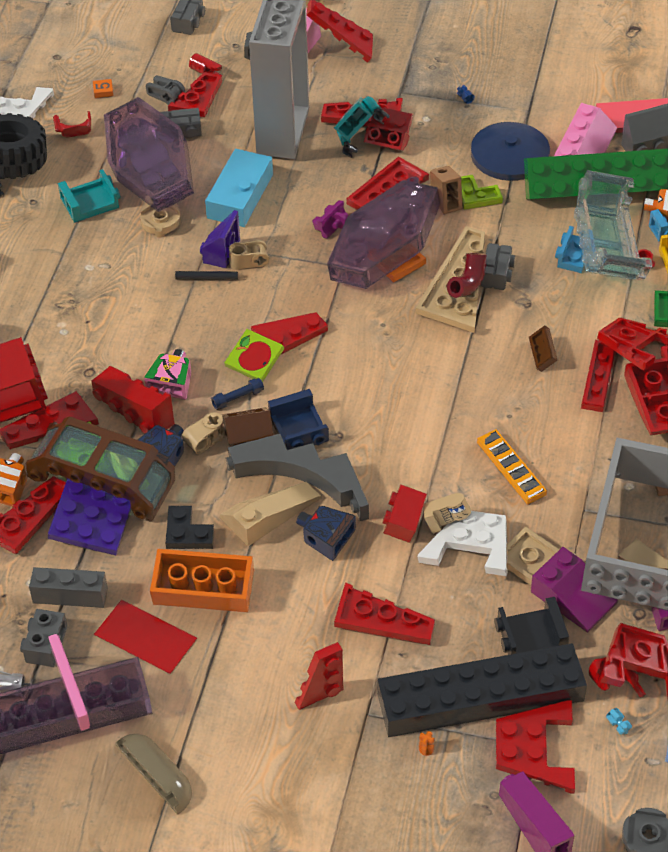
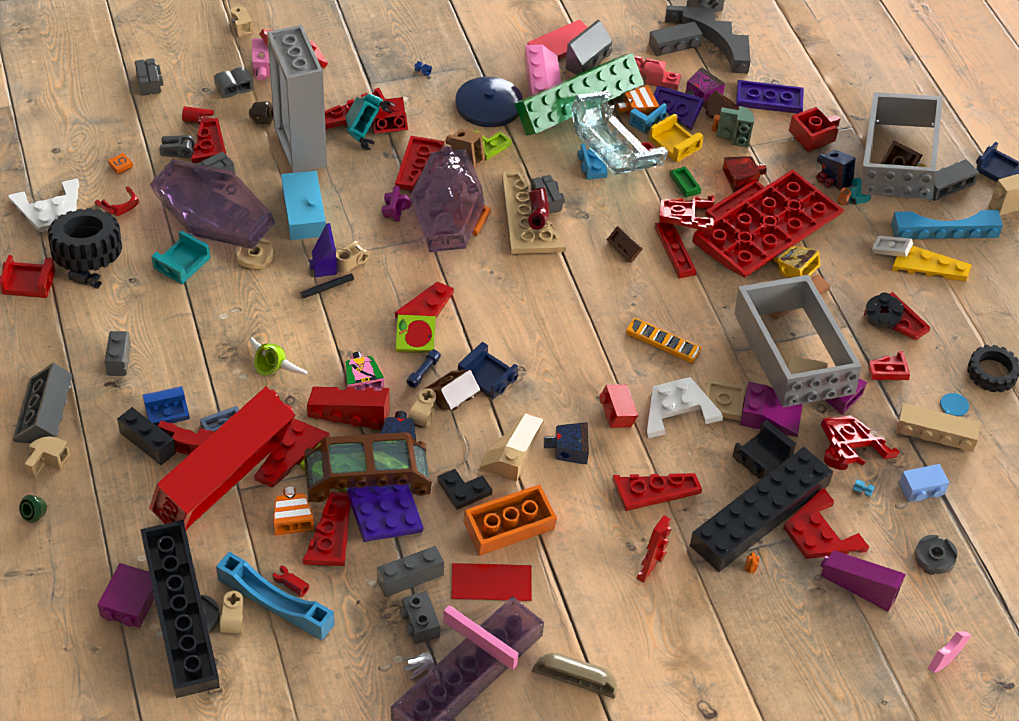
camera: 35 degrees left, 0 degrees up
(96, 324) = (271, 358): none -> lime helmet
(330, 475) = (544, 401): dark grey arch -> none
(446, 511) = (647, 391): tan leg -> none

